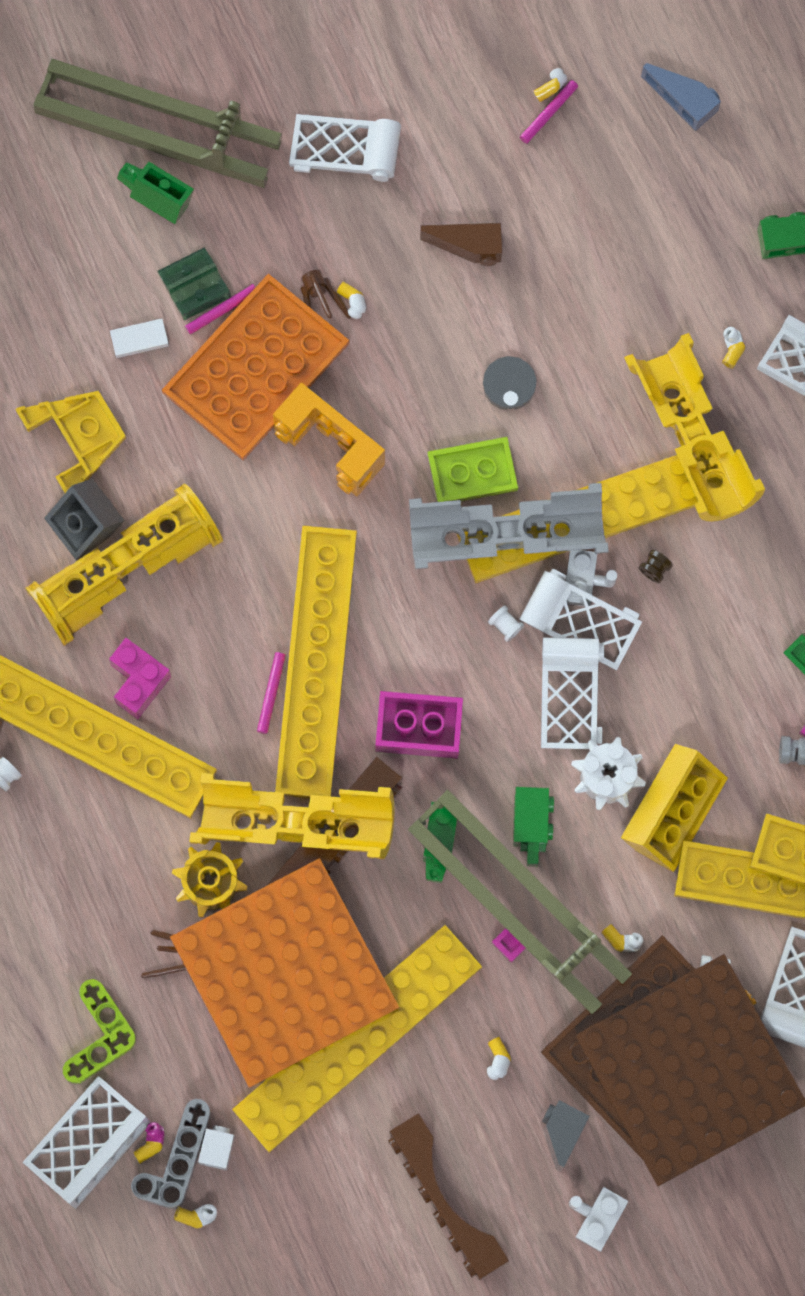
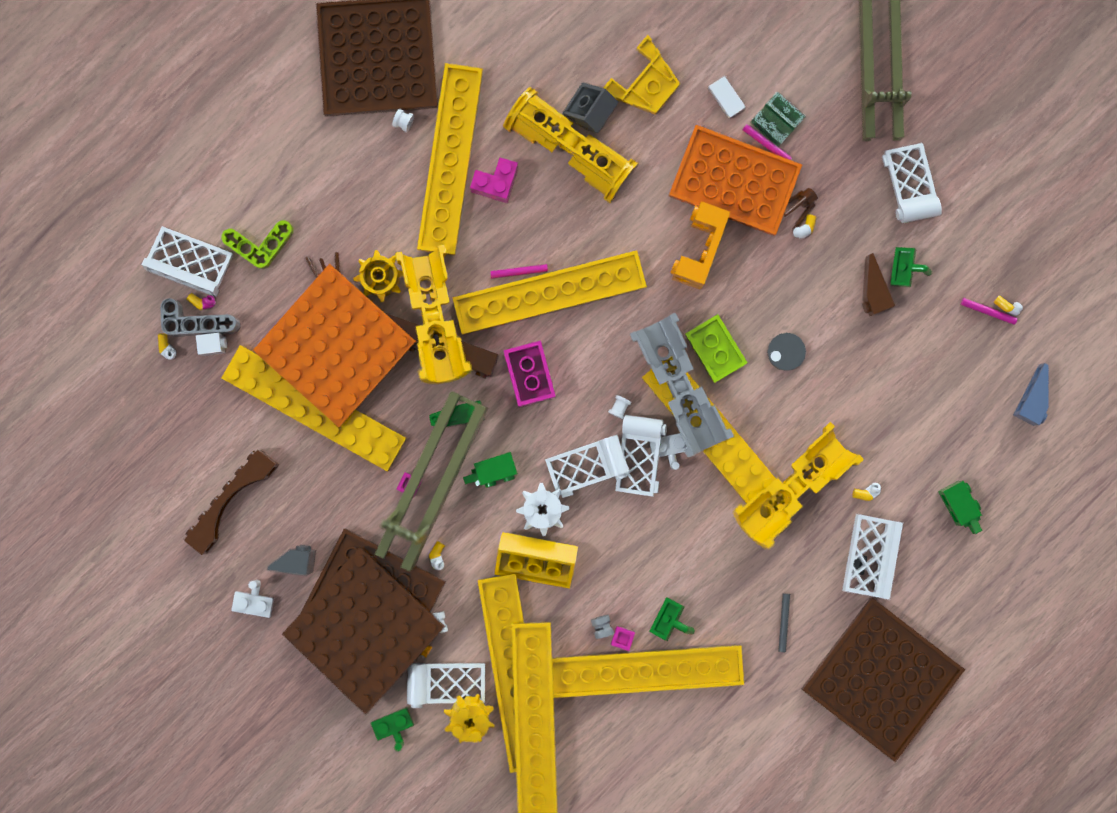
camera: 75 degrees right, 10 degrees up
(157, 190) = (832, 69): green hinge -> none
(452, 193) = (904, 267): none -> green plate
(501, 1059) = (331, 505): arm -> none
(655, 566) = (694, 492): dark brown wheel -> none

